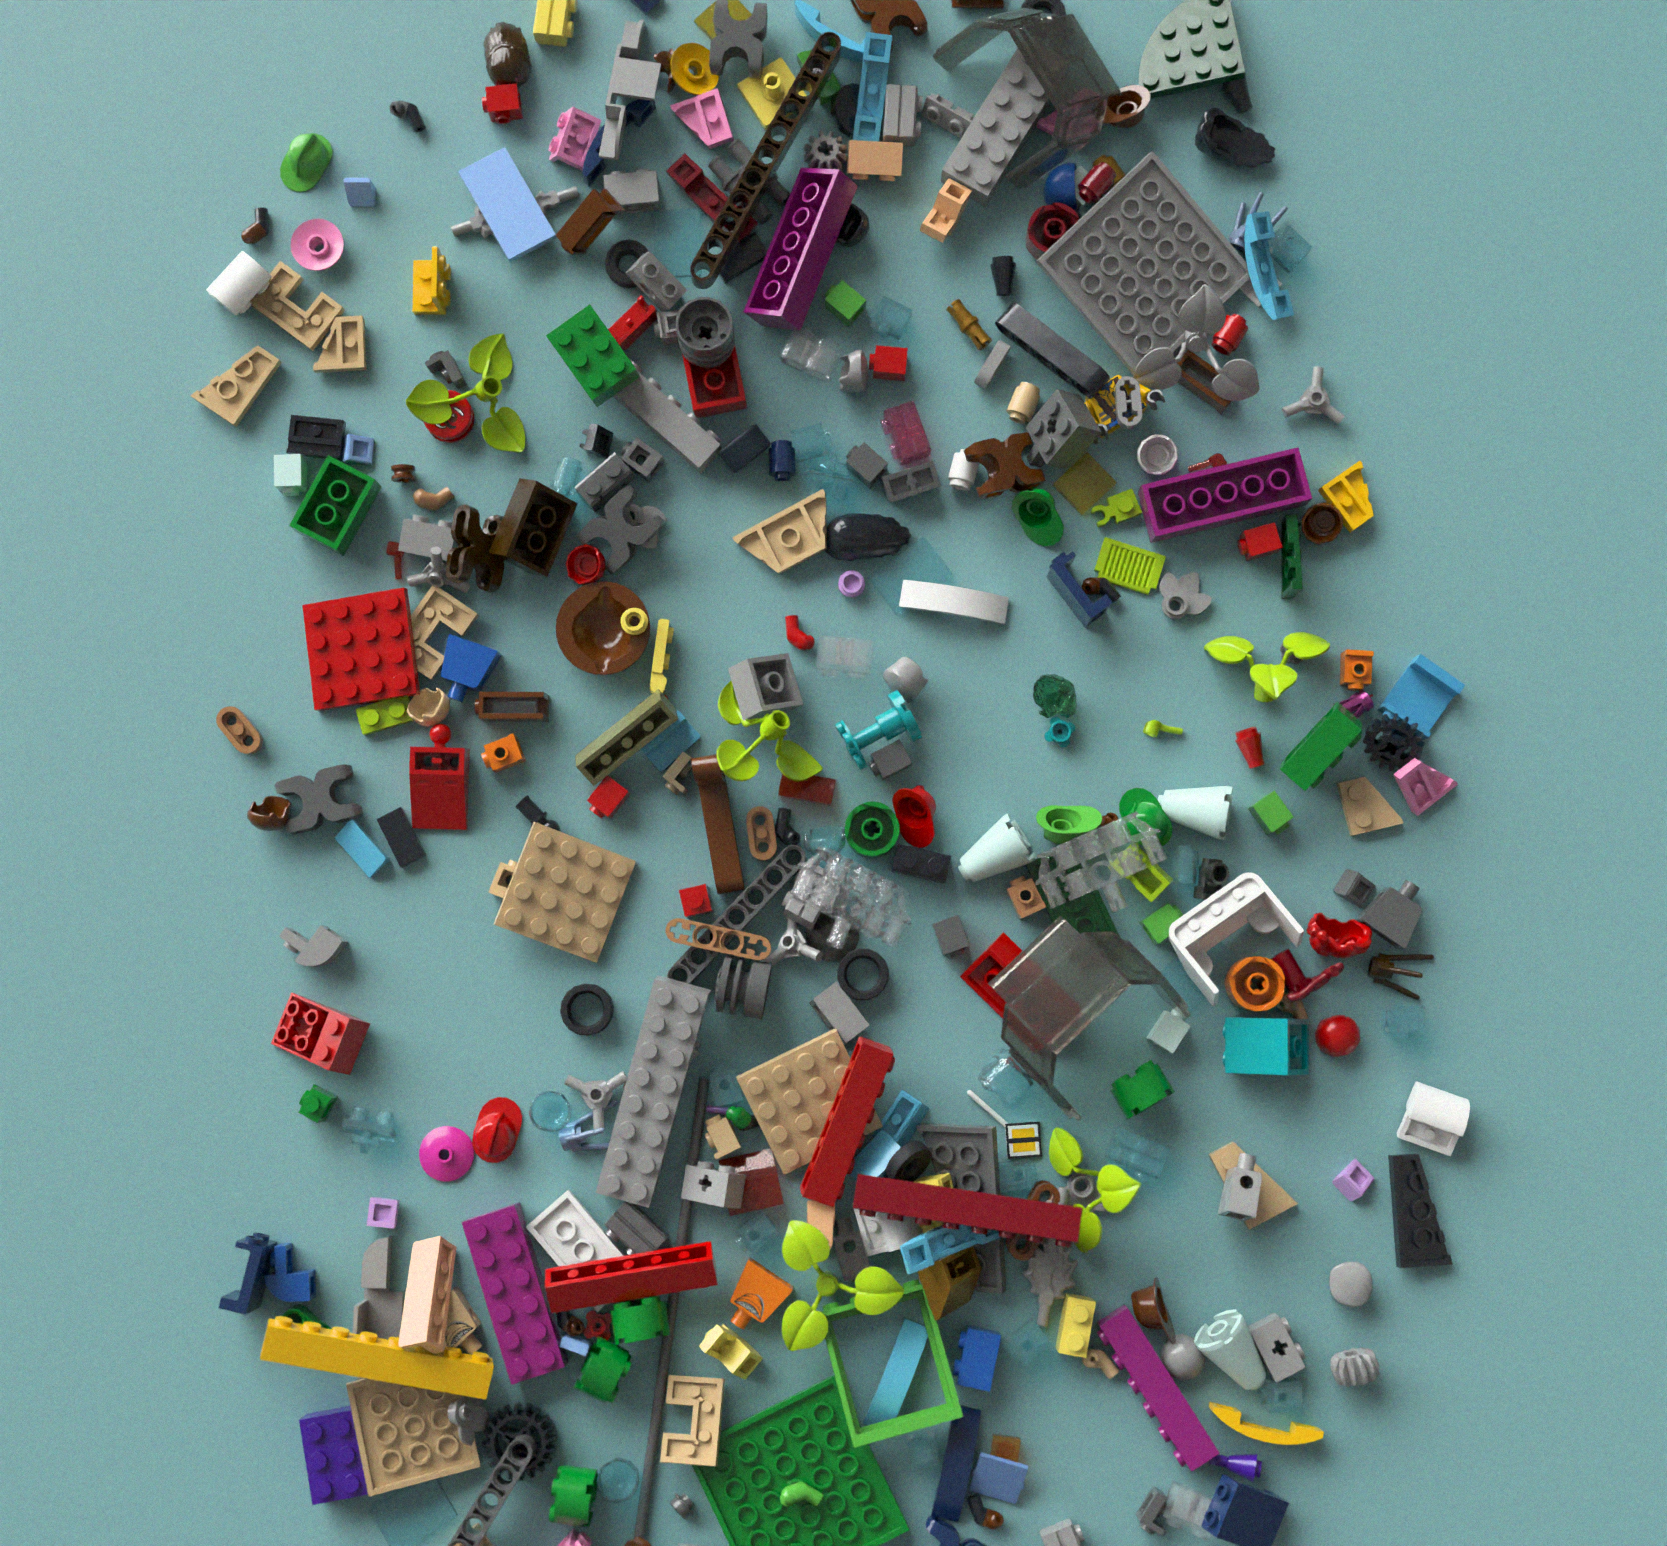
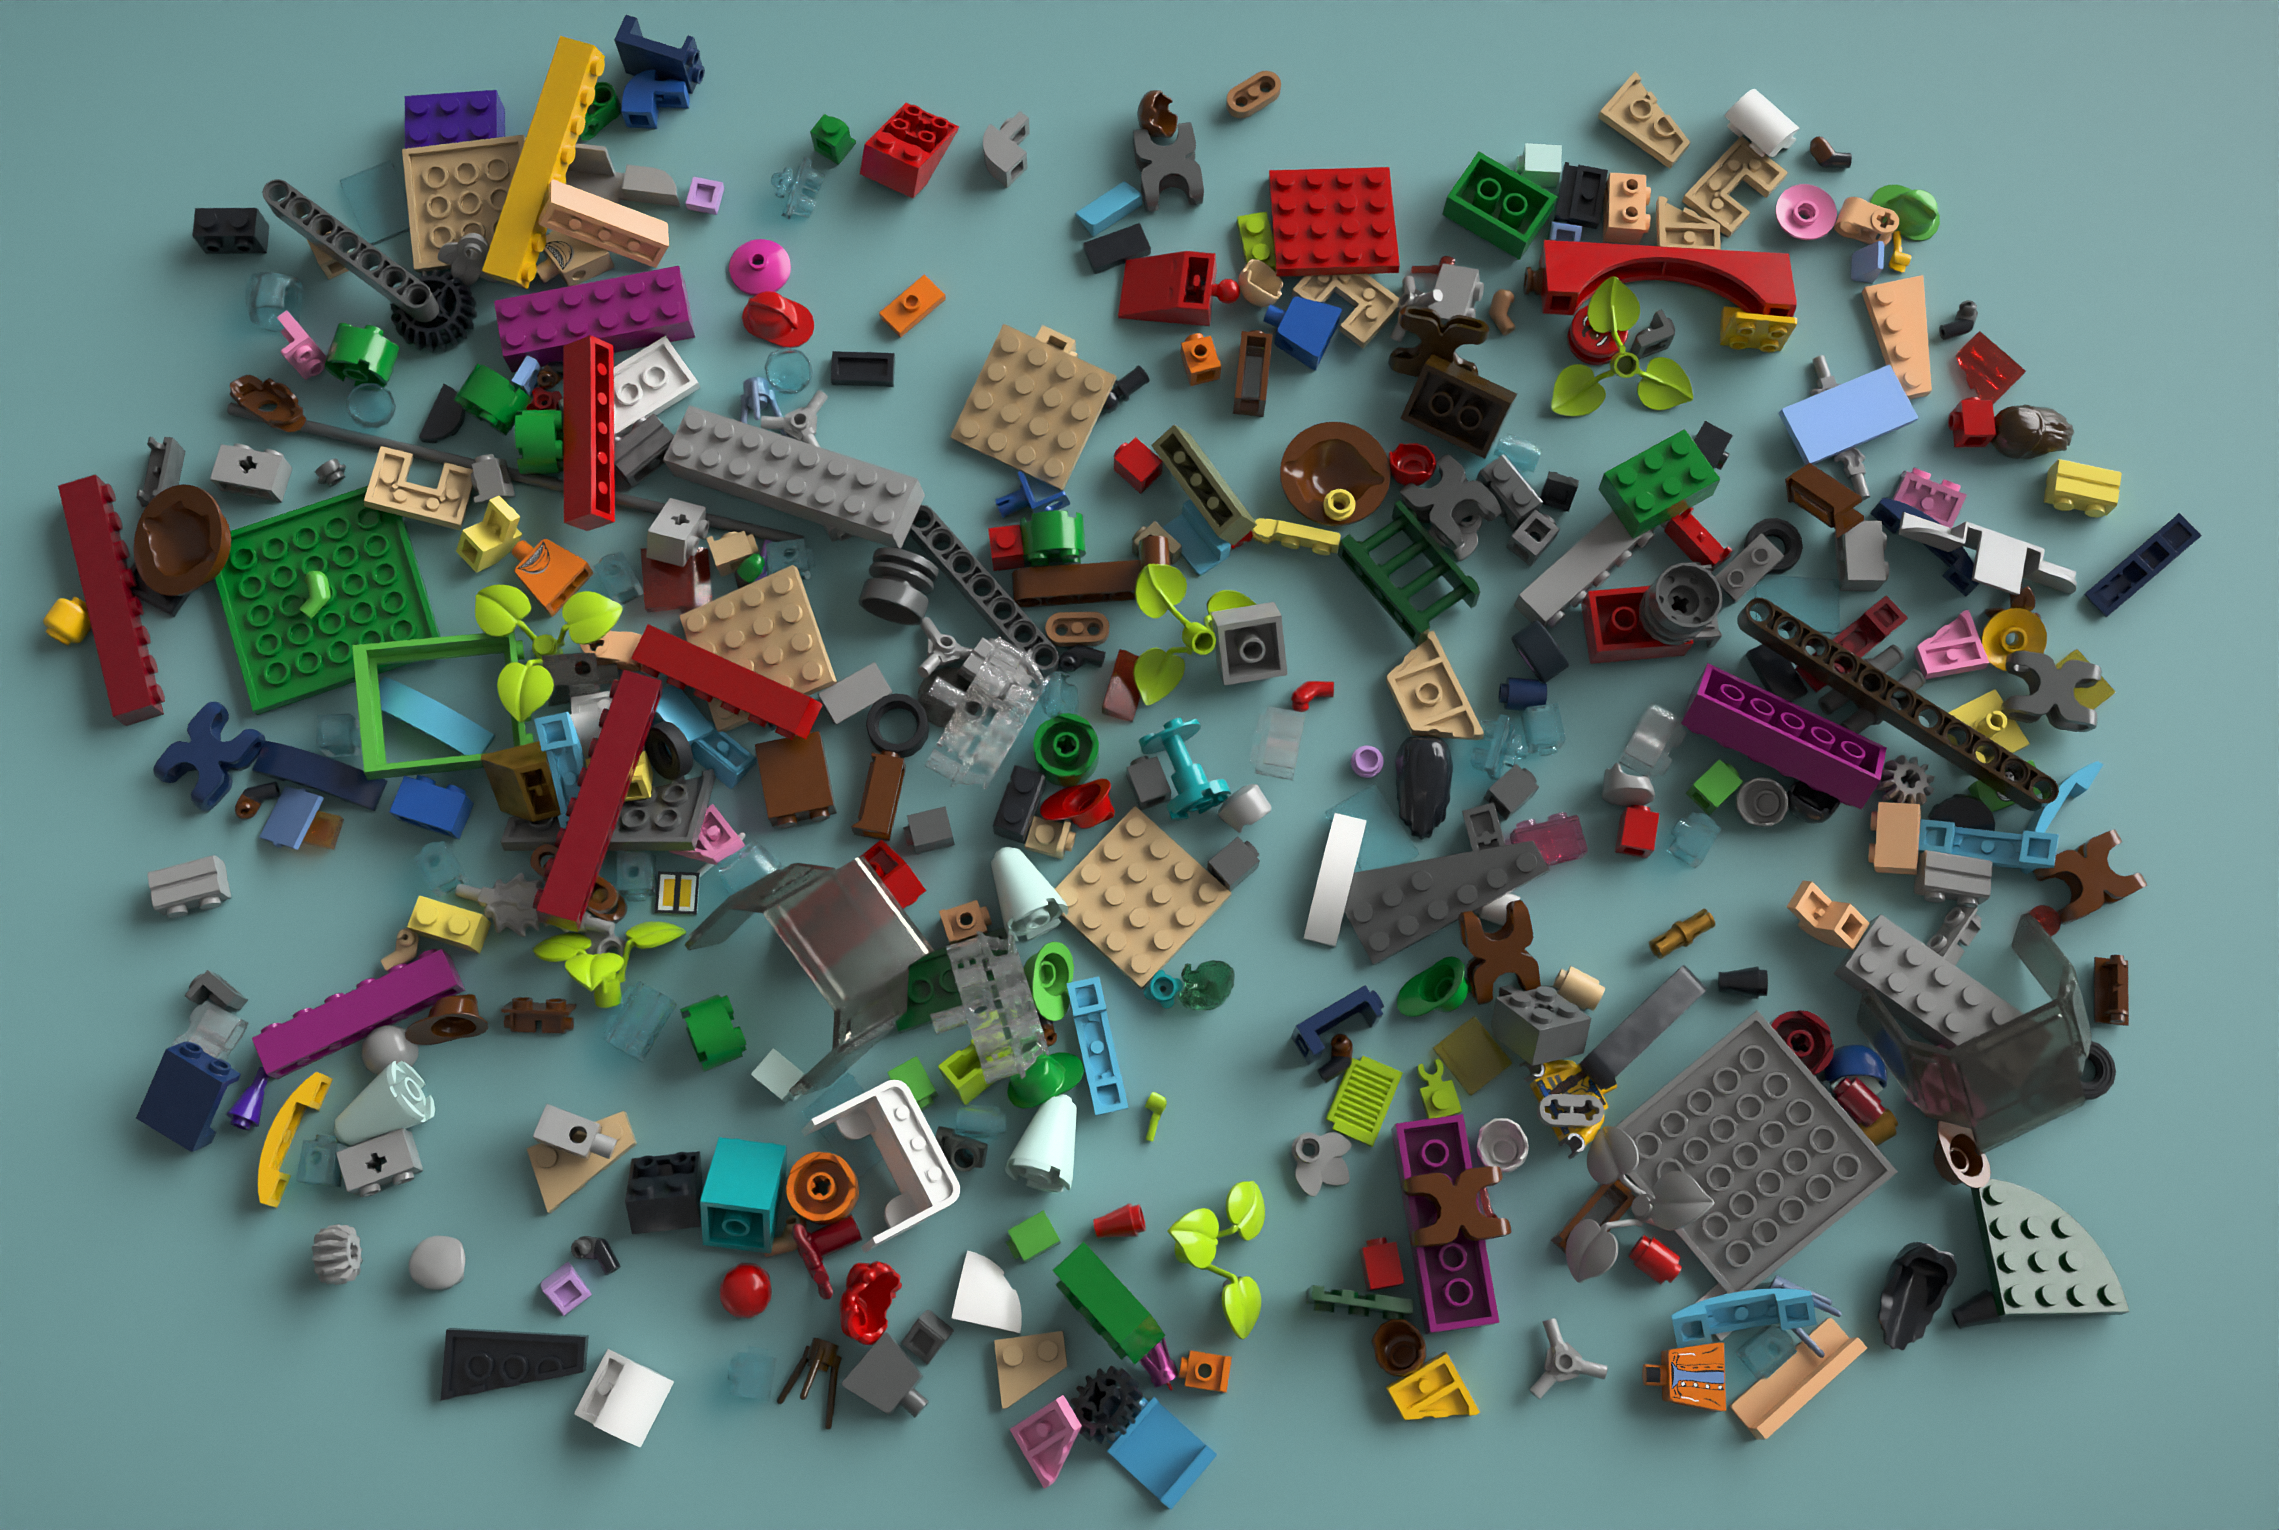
camera: 90 degrees right, 10 degrees down
(321, 198) = (1864, 221): none -> light nougat piece
(326, 397) = (1625, 208): none -> light nougat brick
(354, 166) = (1898, 259): none -> yellow hand
(388, 288) = (1749, 279): none -> red arch
(420, 163) = (1901, 330): none -> light nougat wing
(450, 91) = (1988, 368): none -> clear red wing
(473, 1011) = (912, 306): none -> orange plate
(537, 1047) = (863, 368): none -> black tile
(546, 317) = (1712, 443): none -> black brick
(569, 1021) = (892, 400): black tyre -> none
(620, 1413) = (444, 417): none -> black tile
(647, 890) = (1024, 498): none -> blue bracket
(678, 1358) = (491, 479): none -> light grey brick
(686, 860) = (1053, 538): none -> green brick
(691, 586) = (1396, 600): none -> dark green fence
(719, 936) = (956, 561): medium nougat beam -> none
(855, 264) = (1762, 802): none -> light grey hair
(921, 1053) = (795, 780): none -> reddish brown brick
(925, 980) = (881, 796): none -> reddish brown window
(926, 46) = (2047, 918): none -> clear red tile
(945, 835) = (1050, 837): none -> tan bracket
(951, 683) = (1234, 863): none -> dark grey brick
(966, 533) = (1418, 898): none -> dark grey wing
(981, 1109) = (715, 839): none -> bright pink wing
(985, 758) = (1139, 897): none -> tan plate
(992, 364) = (1630, 956): light grey beam -> none
(1115, 779) = (1097, 1046): none -> medium azure slope
(1137, 1225) = (525, 1014): none -> reddish brown hinge
(1218, 484) = (1456, 1207): none -> reddish brown piece
(1271, 1110) = (664, 1192): none -> black slope
(1314, 304) = (1690, 1376): none -> orange torso
(1319, 845) = (986, 1296): none -> white brick
(1321, 1157) = (596, 1249): none -> arm
(1328, 243) = (1777, 1398): none -> light nougat panel

